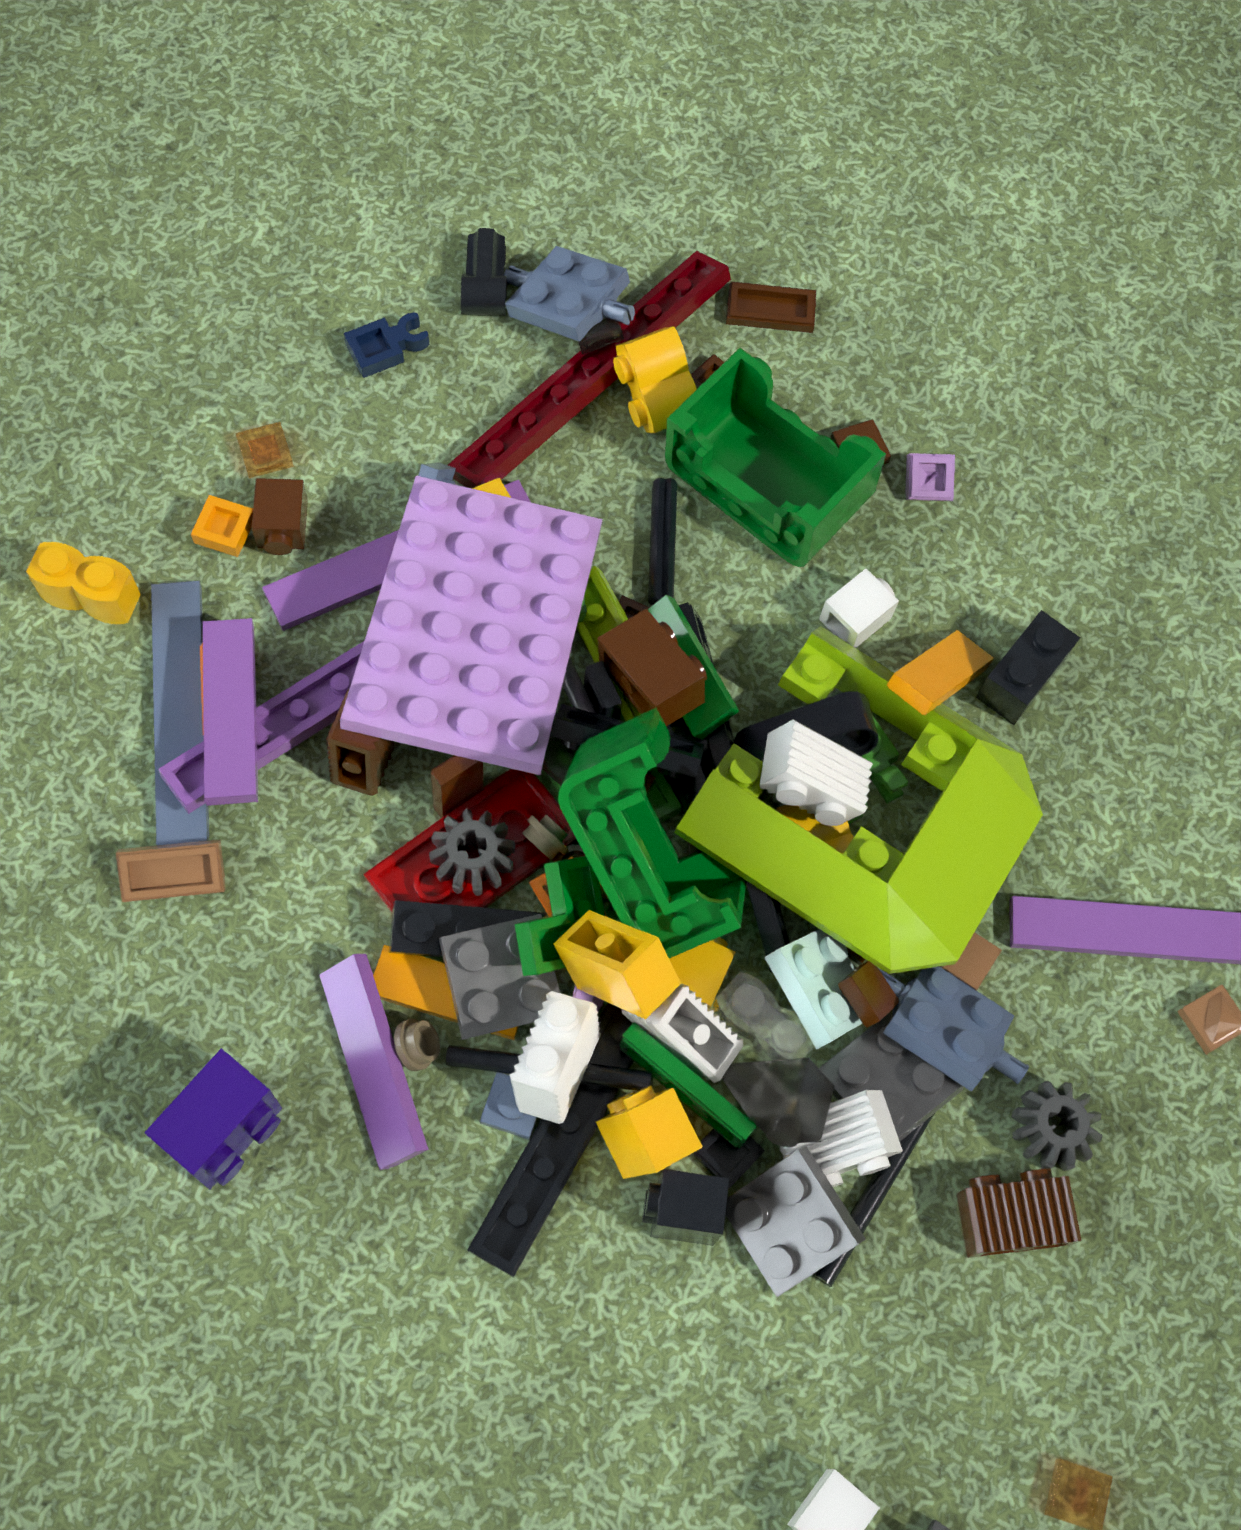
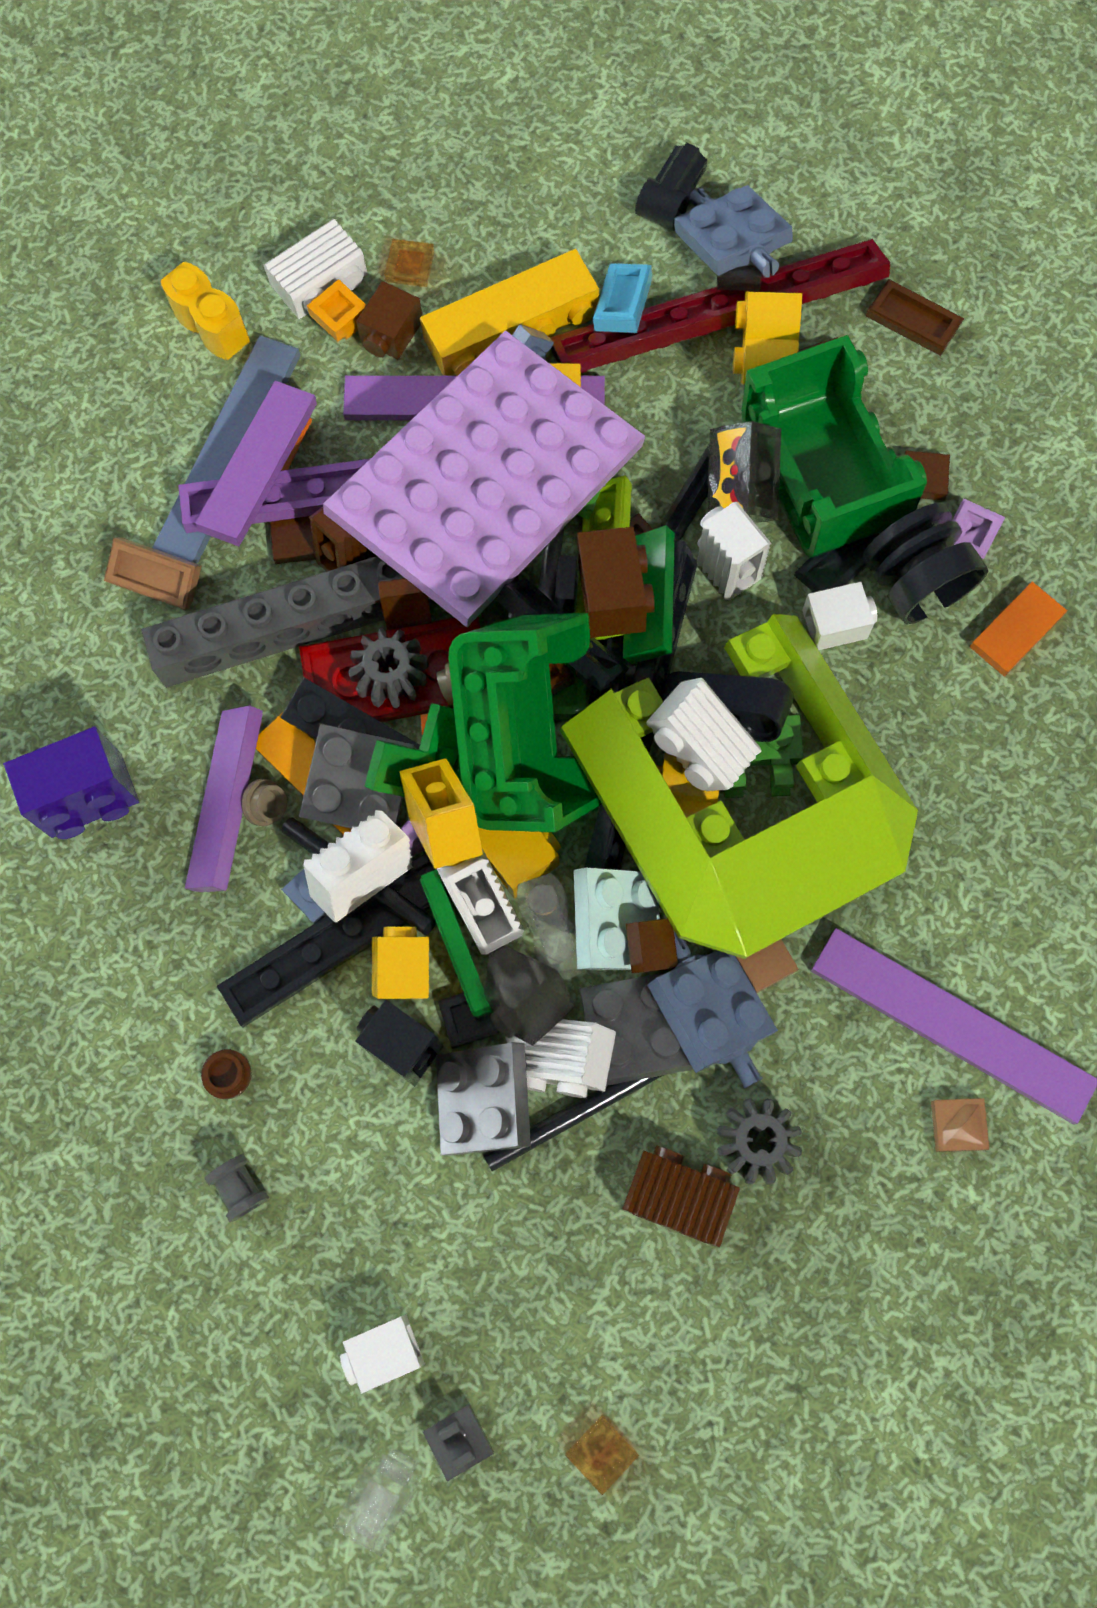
camera: 40 degrees right, 5 degrees up
(175, 494) = (315, 265): none -> white brick
(299, 771) = (292, 540): none -> reddish brown tile
(325, 861) = (268, 622): none -> dark grey brick
(381, 346) = (548, 212): dark blue plate -> none
(385, 466) = (538, 298): none -> yellow brick
(497, 399) = (622, 298): none -> medium azure tile
(525, 1332) = (226, 1074): none -> reddish brown plate
(600, 1438) = (236, 1187): none -> dark grey bush
(706, 516) = (745, 469): none -> clear smoke brick
(734, 591) = (732, 549): none -> white brick
(830, 566) = (834, 567): none -> black tile
(911, 526) = (922, 559): none -> black wheel
(939, 672) = (875, 702): light orange tile -> none
(1016, 550) = (1018, 628): none -> orange tile
(1027, 667) = (963, 735): black brick -> none

